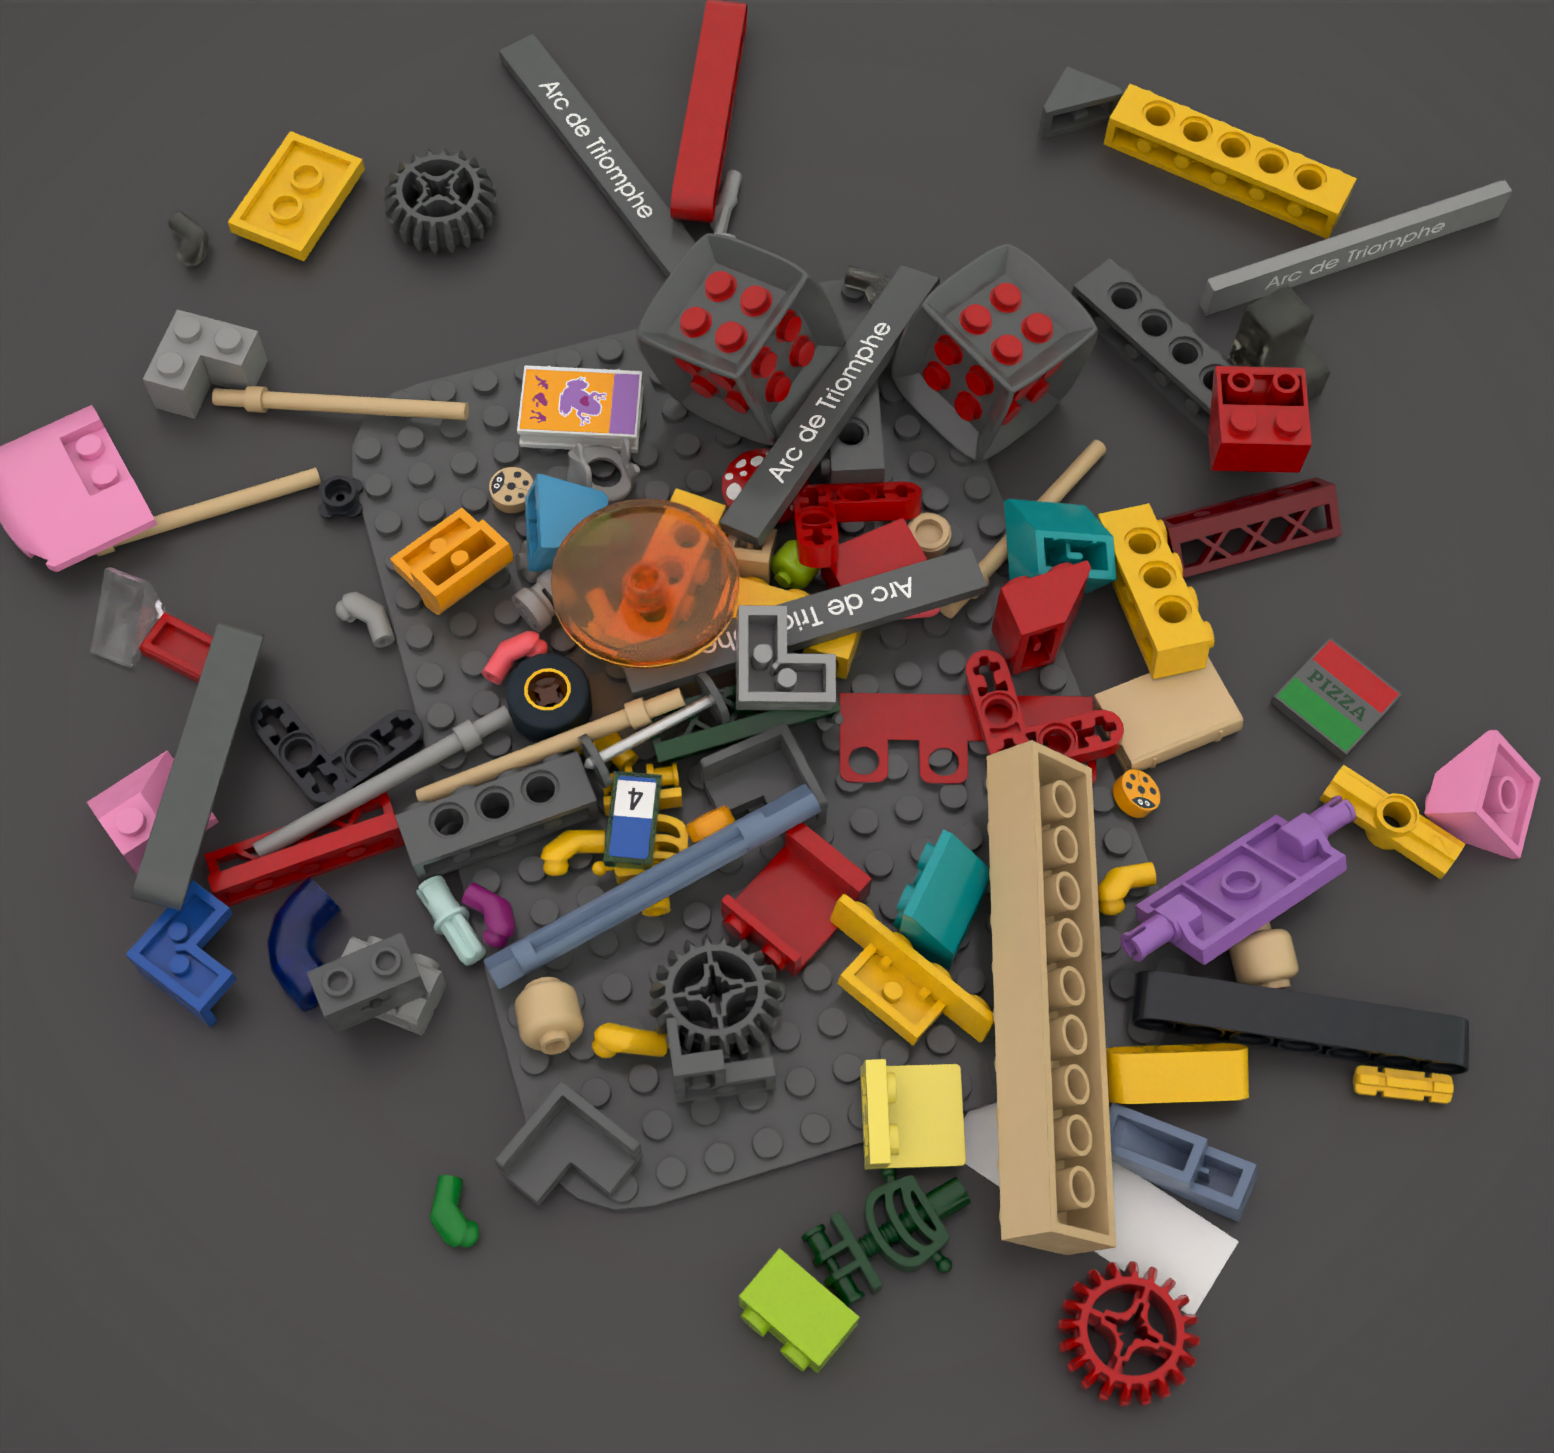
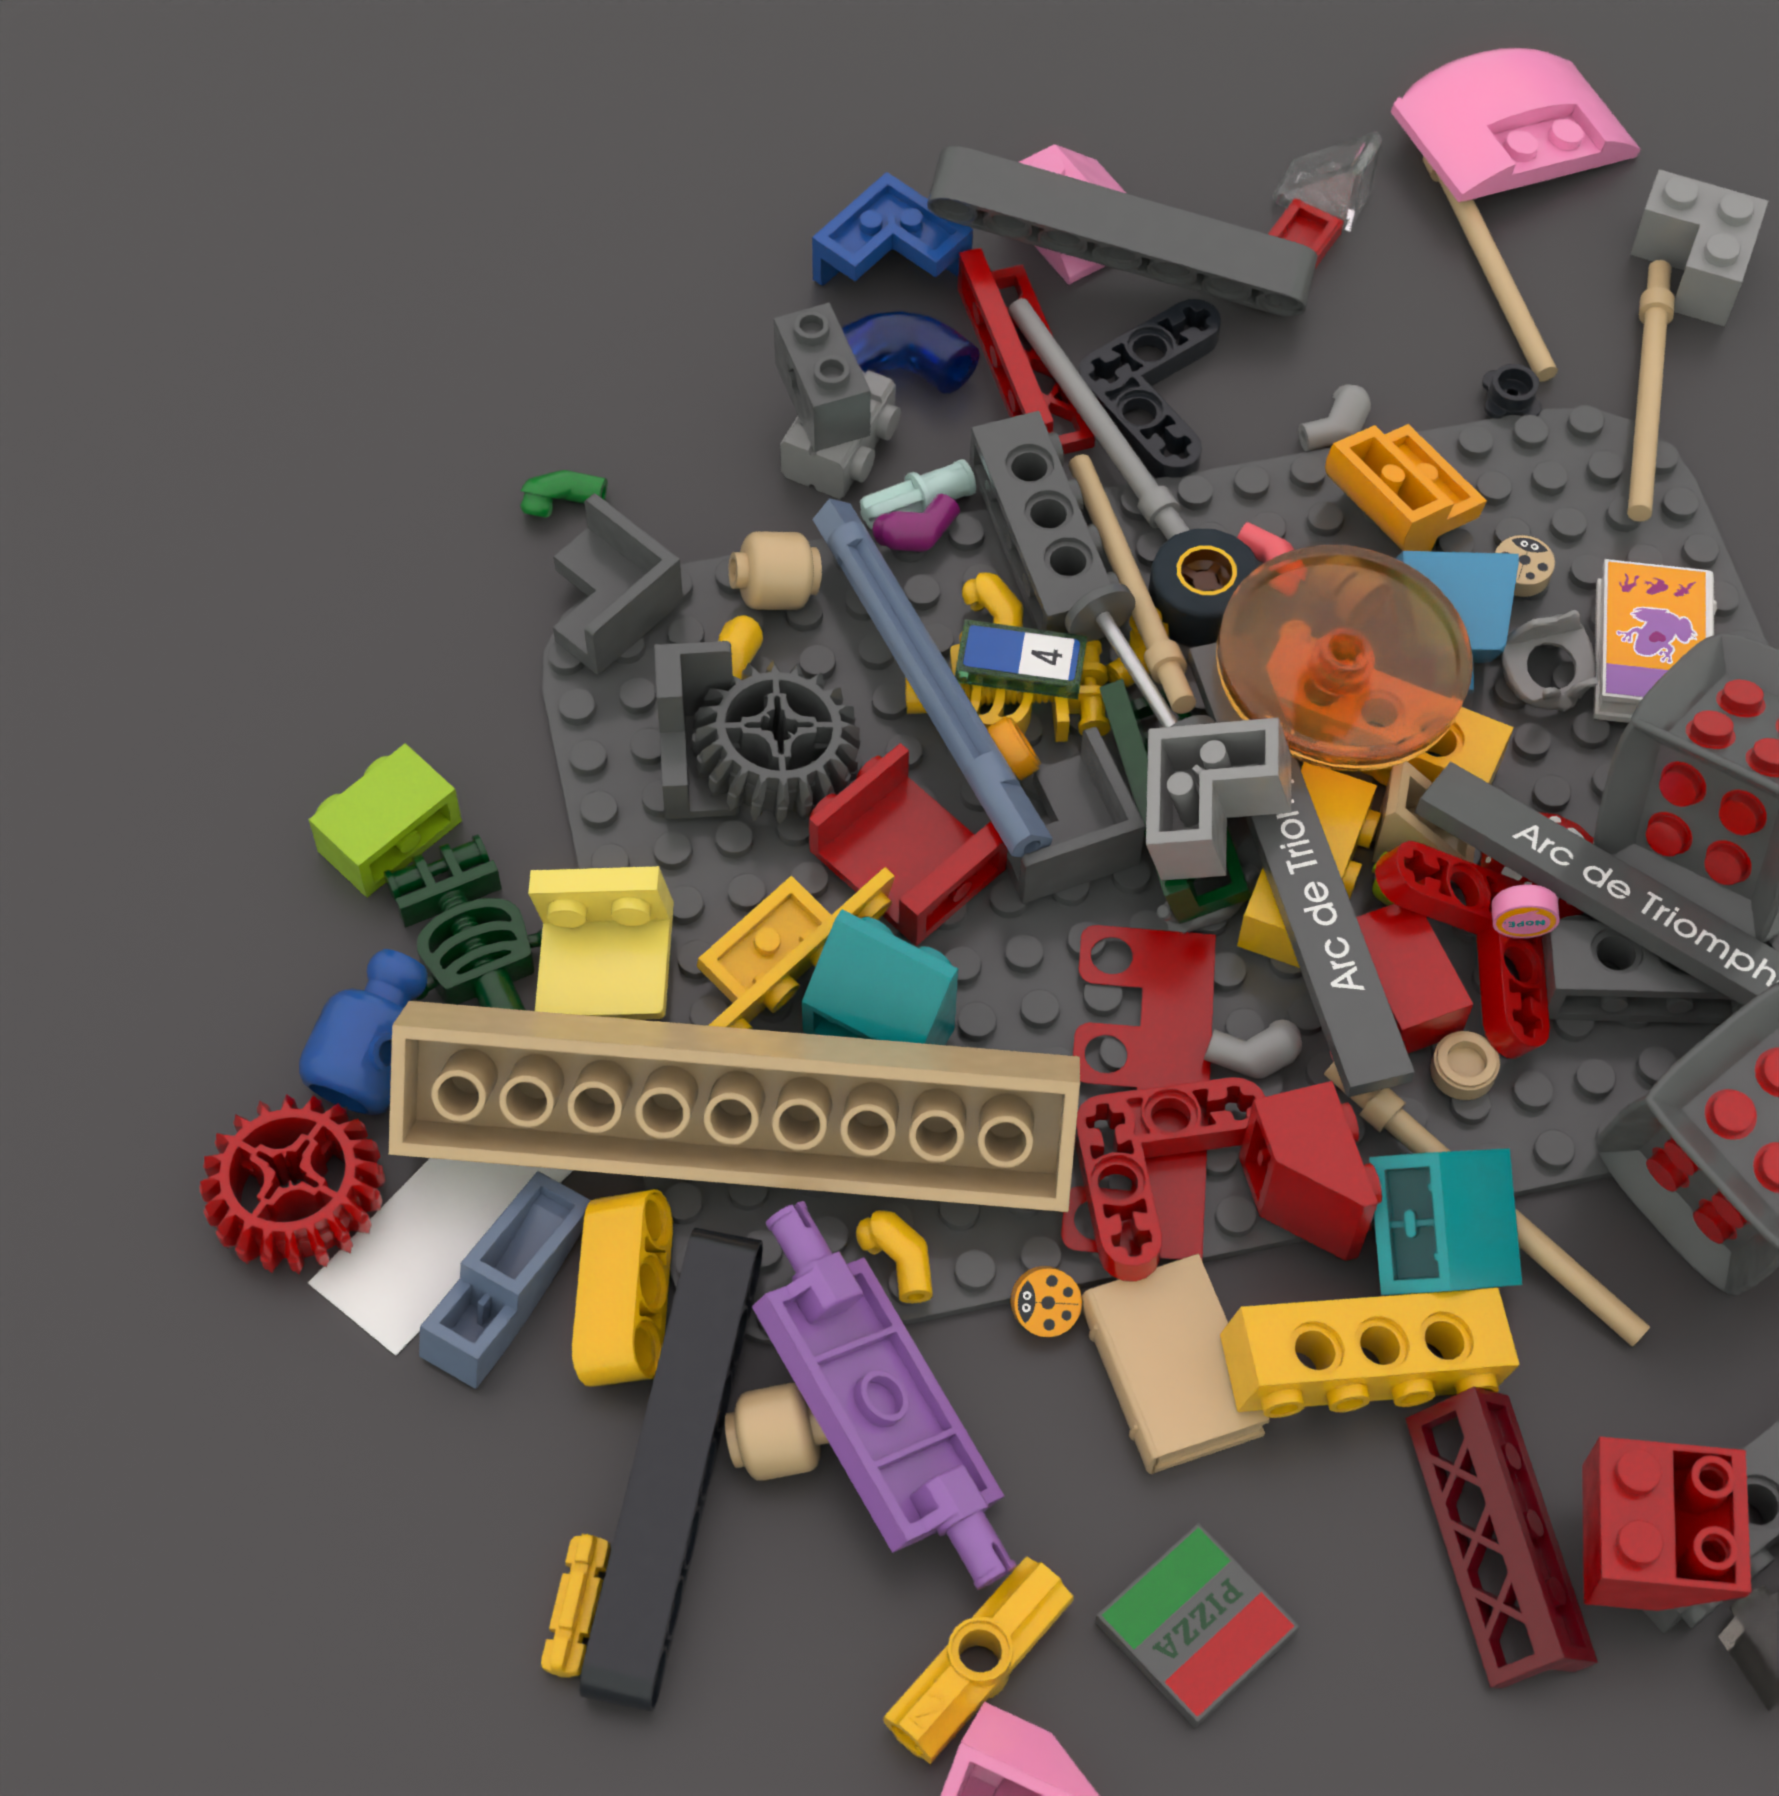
camera: 95 degrees right, 5 degrees down
(834, 480) = (1525, 911): none -> bright pink tile
(940, 658) = (1258, 1055): none -> light grey arm
(1002, 1292) = (352, 1039): none -> blue piece

